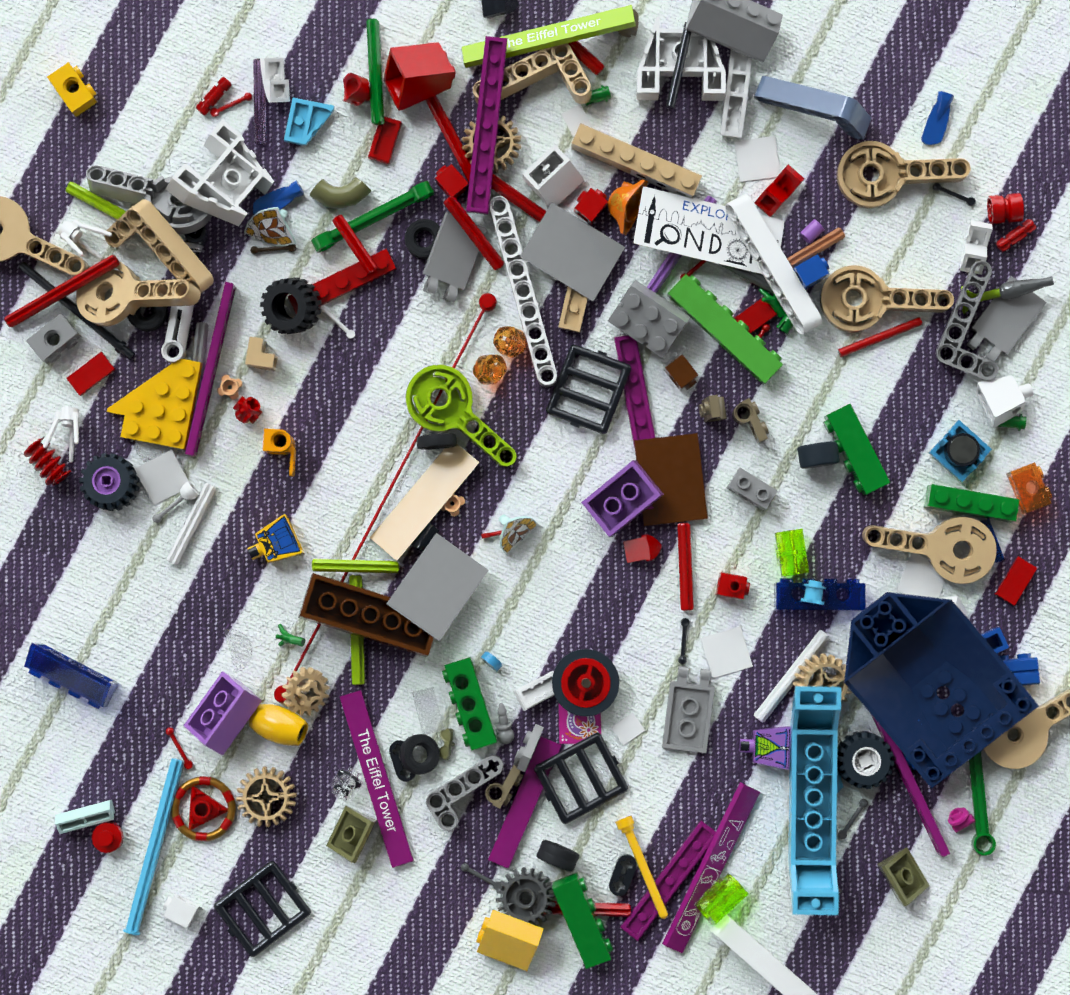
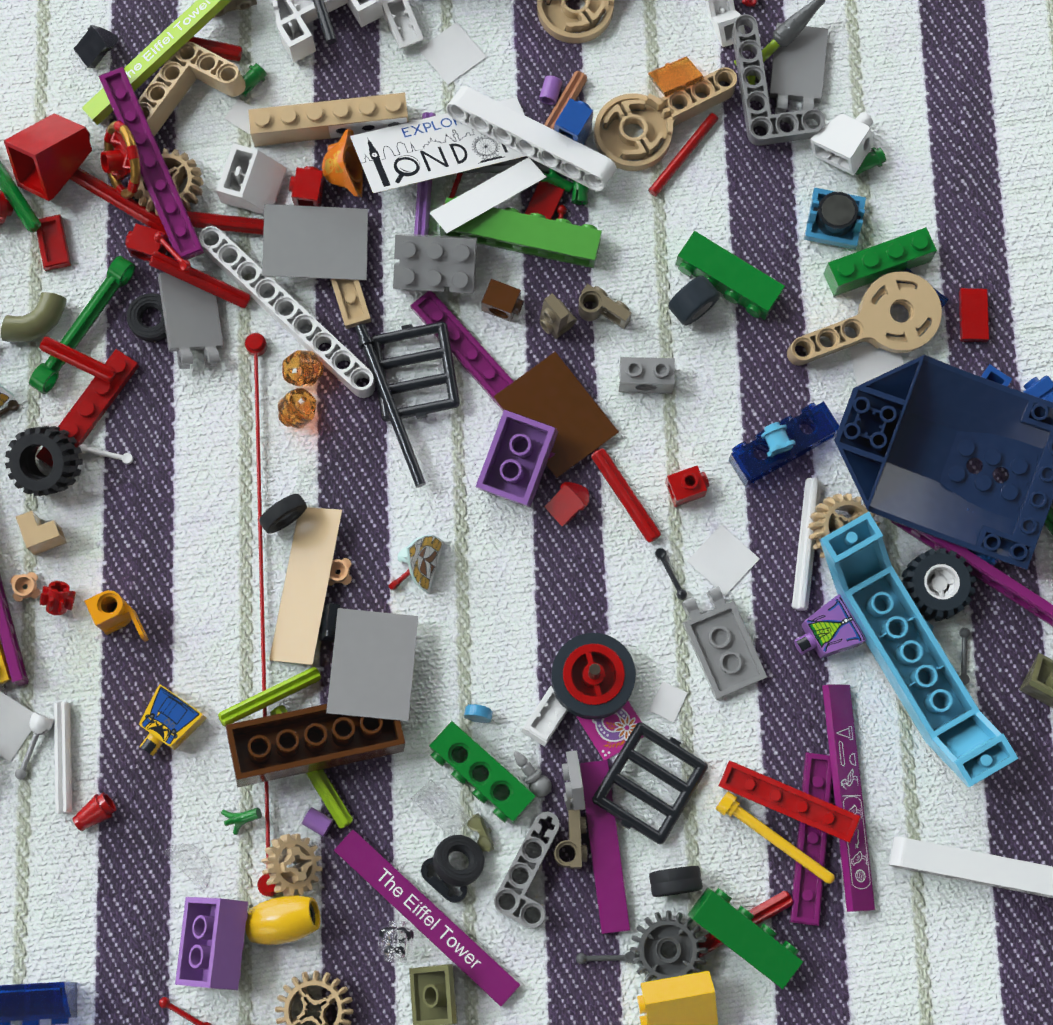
camera: 30 degrees left, 10 degrees down
(193, 575) = (95, 811): none -> red cone
(339, 670) = (317, 821): none -> medium lavender hinge
(454, 413) = (284, 474): lime beam -> none
(467, 219) = (183, 264): none -> red hinge
(468, 110) = (121, 159): none -> red piece
(556, 406) = (366, 343): none -> black bar
(627, 876) = (764, 860): black beam -> none
(668, 848) = (790, 801): none -> red plate
(716, 289) = (487, 195): none -> white sticker
(721, 899) = (880, 823): clear neon green piece -> none
(779, 190) = (493, 68): red slope -> none
(791, 552) = (728, 415): clear neon green piece -> none
(909, 275) = (676, 76): none -> clear orange piece
(1018, 480) = (912, 213): clear orange brick -> none

